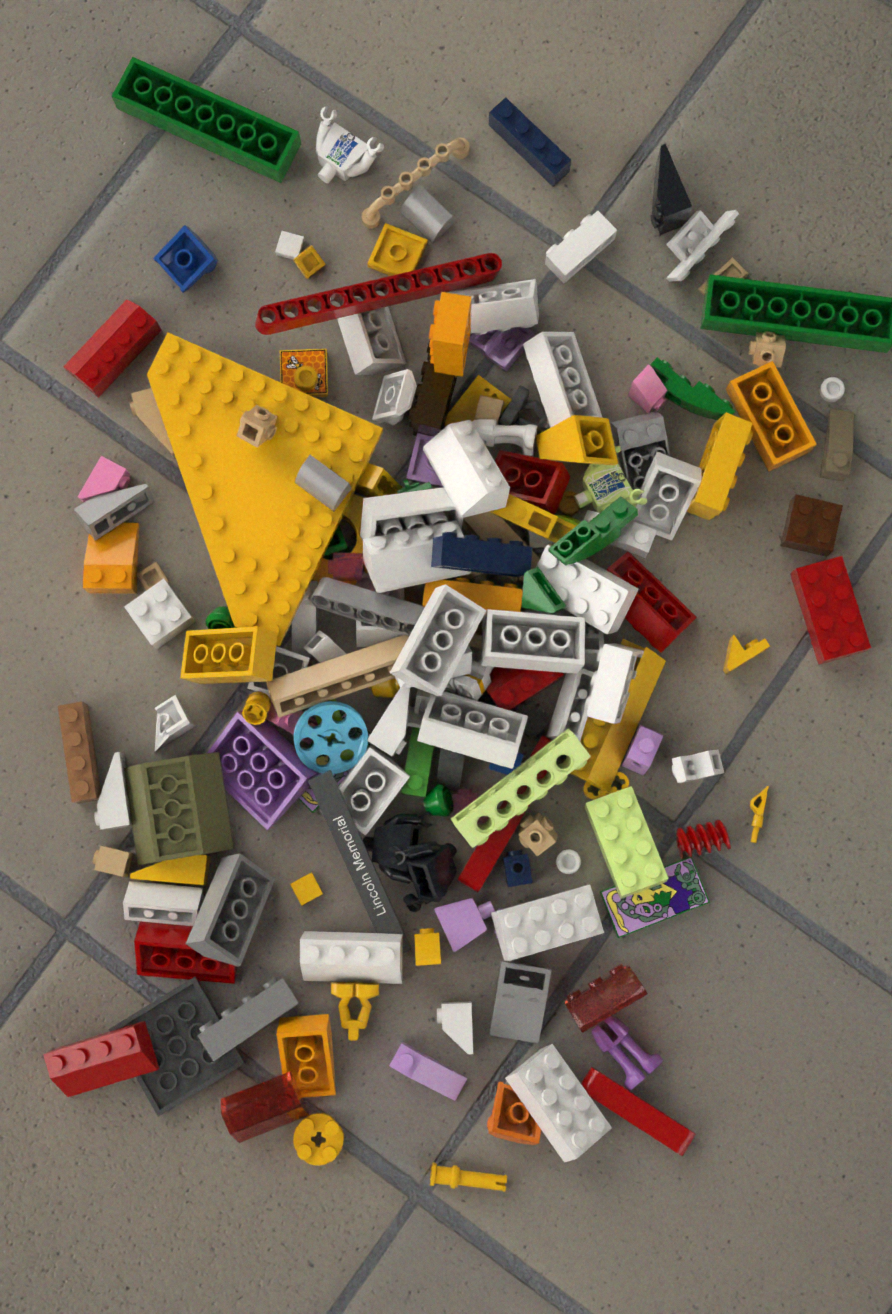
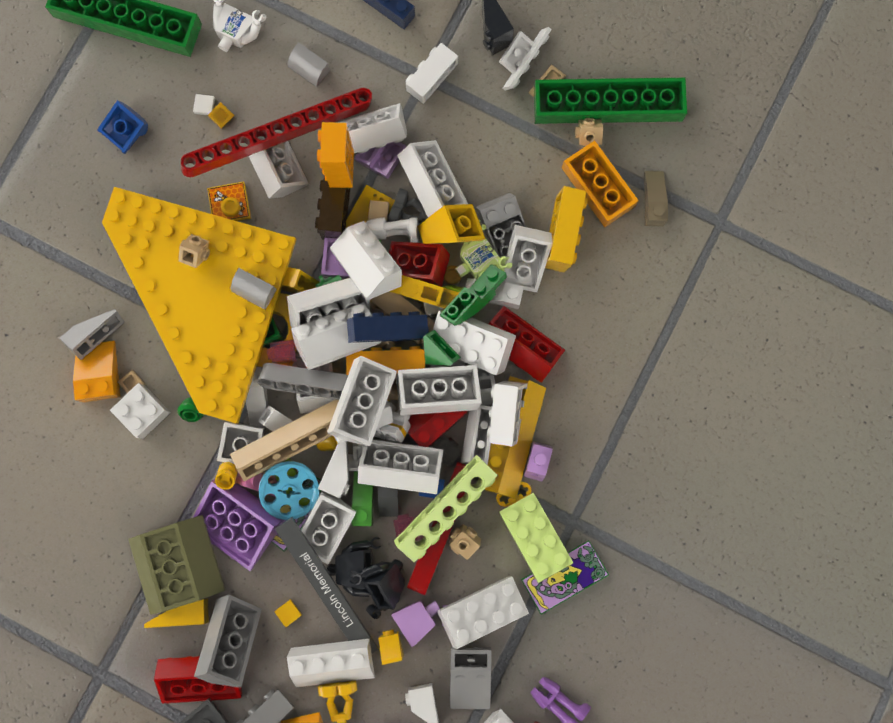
camera: 10 degrees left, 0 degrees up
(79, 752) = (91, 531): medium nougat brick -> none
(104, 479) = (81, 309): bright pink slope -> none
(112, 861) = (129, 615): tan brick -> none
(113, 347) = (75, 205): red slope -> none
(113, 801) = (123, 567): white slope -> none
(146, 409) = (106, 250): tan slope -> none
(162, 903) = (173, 643): white brick -> none
(171, 722) = (162, 495): white slope -> none
(229, 655) = (198, 437): yellow brick -> none
(395, 397) = (302, 212): white slope -> none
(397, 251) = (288, 97): yellow tile -> none
(439, 801) = (383, 527): green cone -> none
(458, 147) = (326, 9): tan bar -> none
(517, 869) = (453, 572): dark blue brick -> none
(568, 861) = (492, 559): white tile -> none
(604, 997) = (536, 665): clear red slope -> none
(648, 390) = (500, 177): bright pink slope -> none
(697, 399) = (539, 179): green slope -> none
(697, 766) = (583, 468): white brick -> none
(702, 838) = (595, 525): red piece -> none
(737, 655) = (601, 376): yellow slope -> none
(757, 821) = (637, 498): yellow hand -> none
(811, 525) = (644, 264): reddish brown brick -> none
(830, 610) = (668, 329): red brick -> none
(832, 389) = (644, 156): white tile -> none

